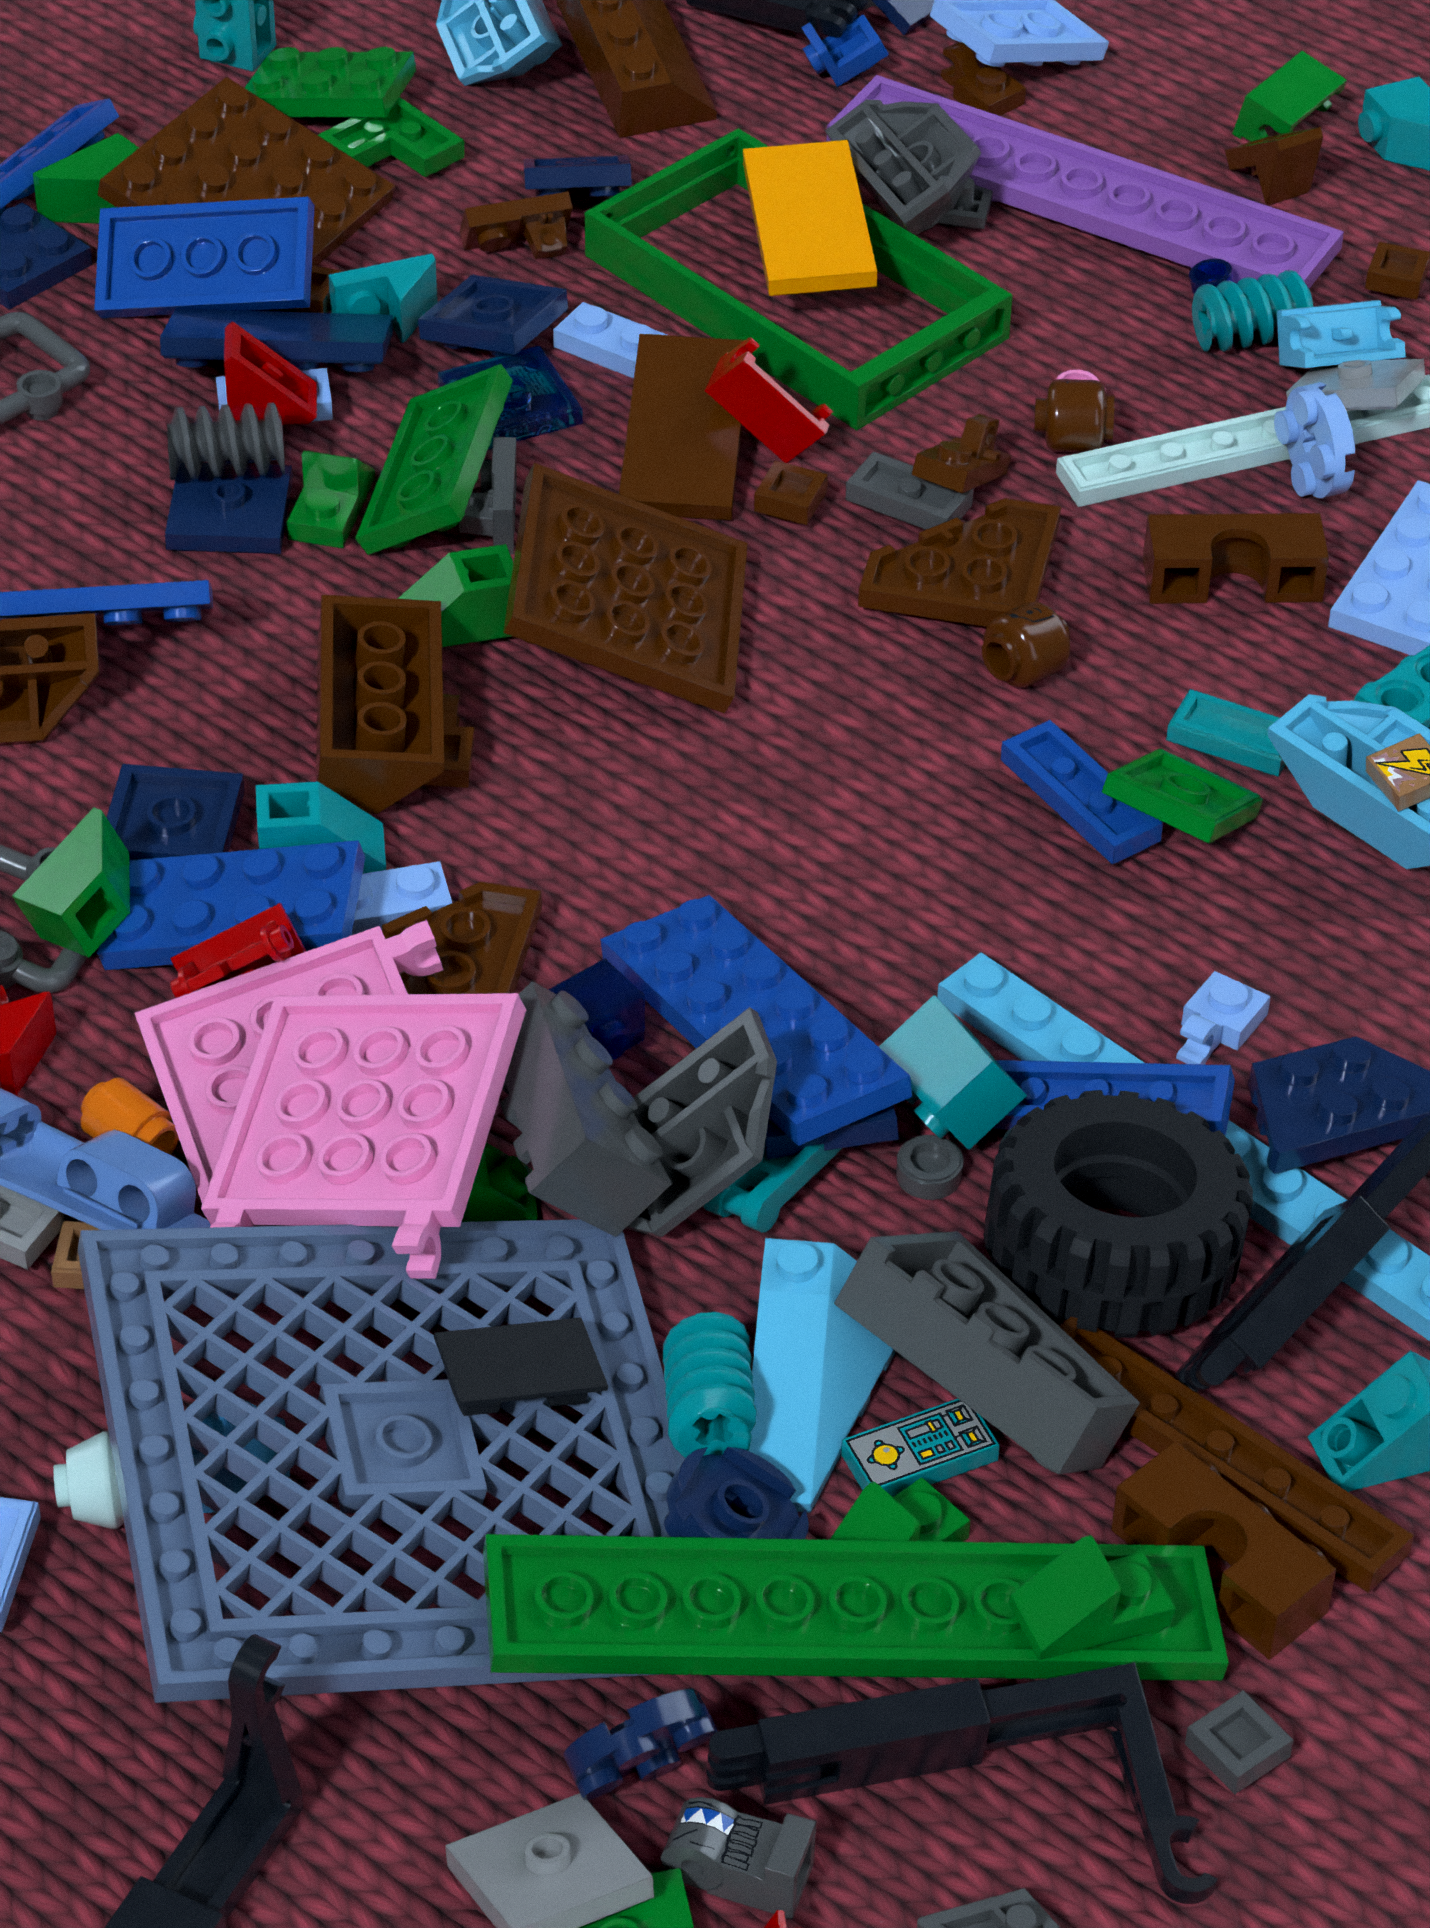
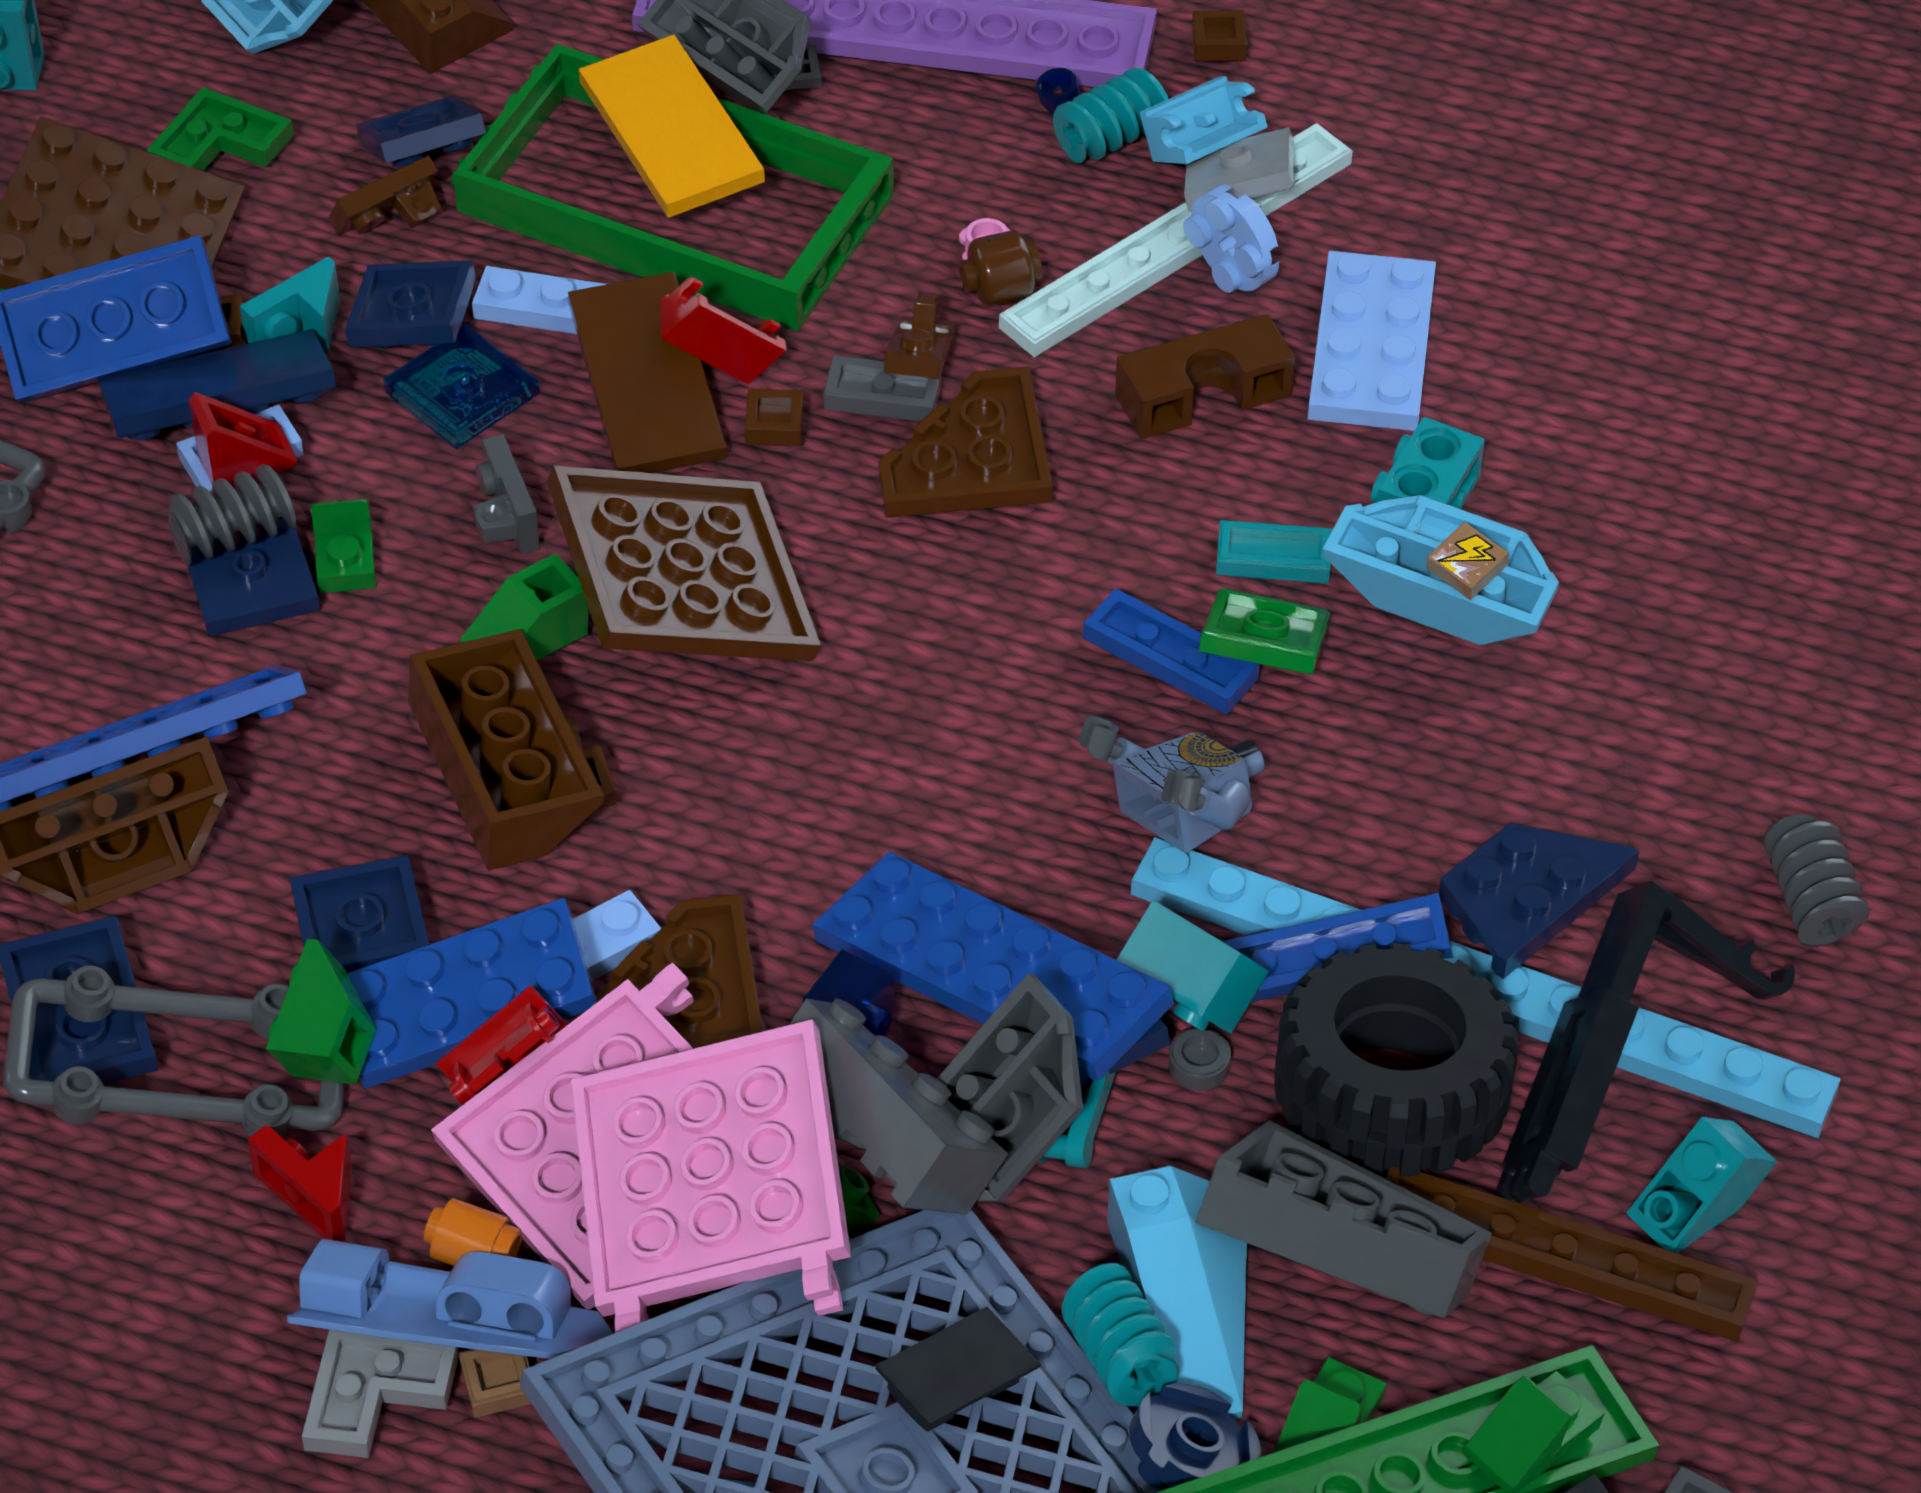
camera: 20 degrees left, 5 degrees up
(316, 815) = (501, 887): teal slope -> none
(333, 81) = (130, 88): green plate -> none
(434, 460) = (432, 476): green plate -> none
(924, 1445) = (1311, 1331): tile -> none
(1025, 910) = (1179, 787): none -> sand blue torso
(1026, 644) = (1061, 518): reddish brown head -> none
(1220, 1013) = (1384, 835): light blue plate -> none
(1274, 1579) = (1566, 1313): reddish brown arch -> none

